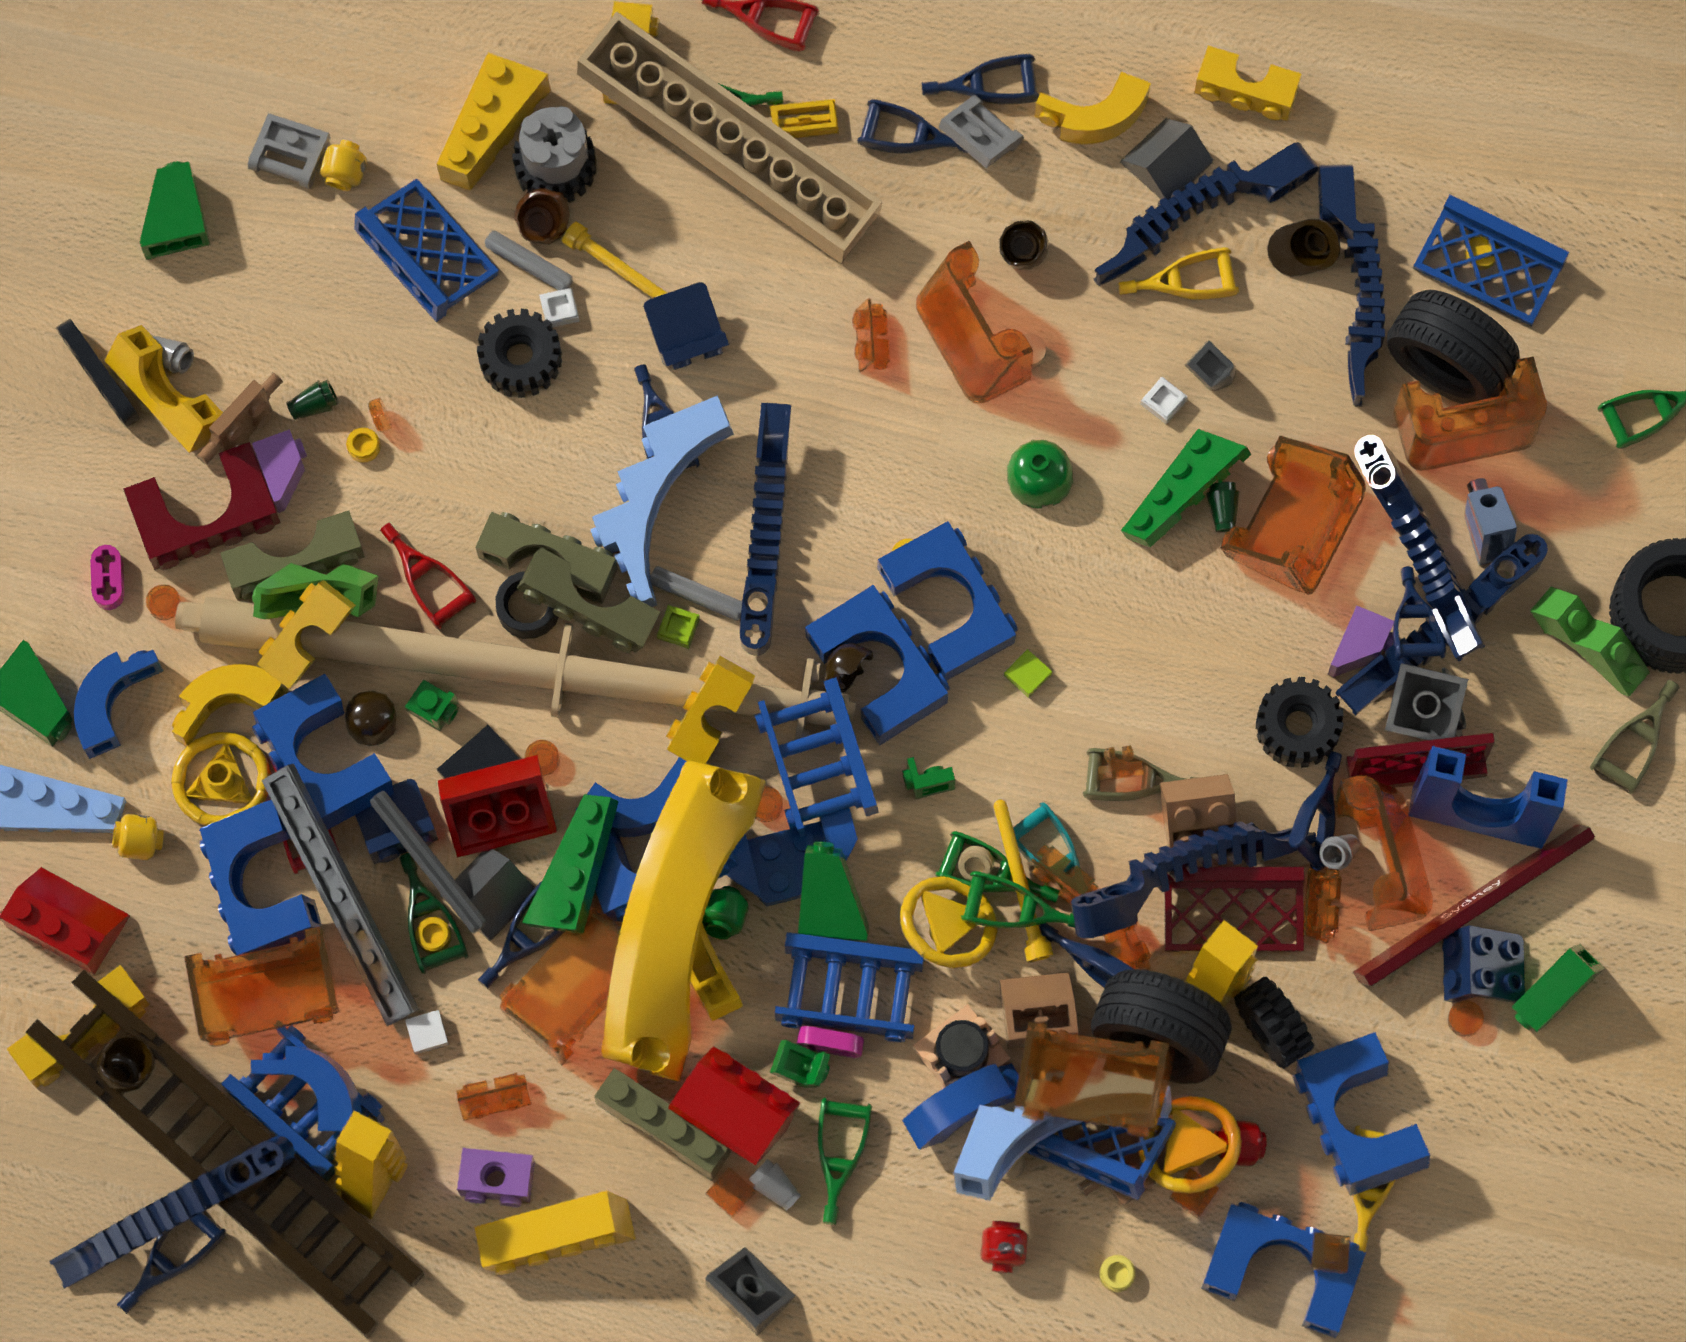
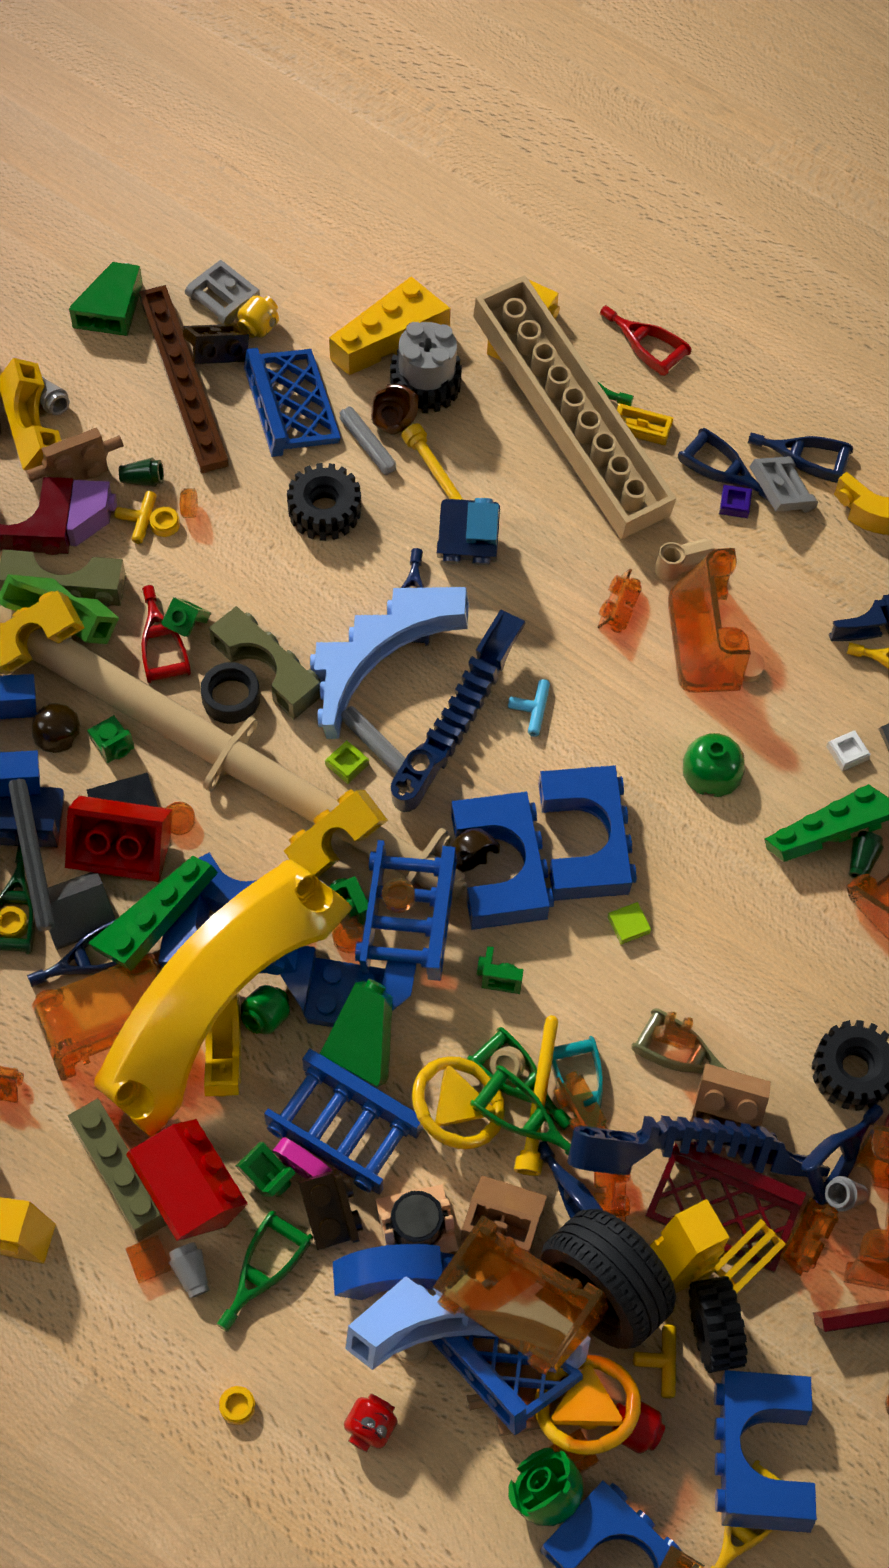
camera: 20 degrees right, 10 degrees down
(299, 271) = (183, 379): none -> reddish brown plate
(316, 215) = (217, 343): none -> dark brown bracket
(336, 449) = (140, 516): none -> yellow piece
(441, 544) = (183, 615): none -> green bracket
(550, 582) = (301, 736): olive arch -> none
(559, 307) = (375, 483): white tile -> none
(701, 317) = (482, 522): none -> dark azure brick
(749, 1290) = (118, 1355): dark grey slope -> none
(755, 763) = (353, 894): none -> green bracket
(803, 748) = (398, 895): none -> clear orange tile
(837, 486) = (536, 707): none -> medium azure piece
(876, 1285) = (237, 1405): none -> yellow tile
(877, 1073) = (329, 1209): none -> dark brown bracket
(917, 257) = (680, 558): none -> tan piece
(938, 169) = (735, 501): none -> dark purple tile
(1023, 245) = (781, 582): dark brown hair -> none
(1117, 1273) = (466, 1499): light yellow tile -> none
(1185, 1232) = (547, 1488): none -> green cylinder
(1239, 1074) = (664, 1360): none -> yellow piece
(1286, 919) = (769, 1235): none -> yellow tile

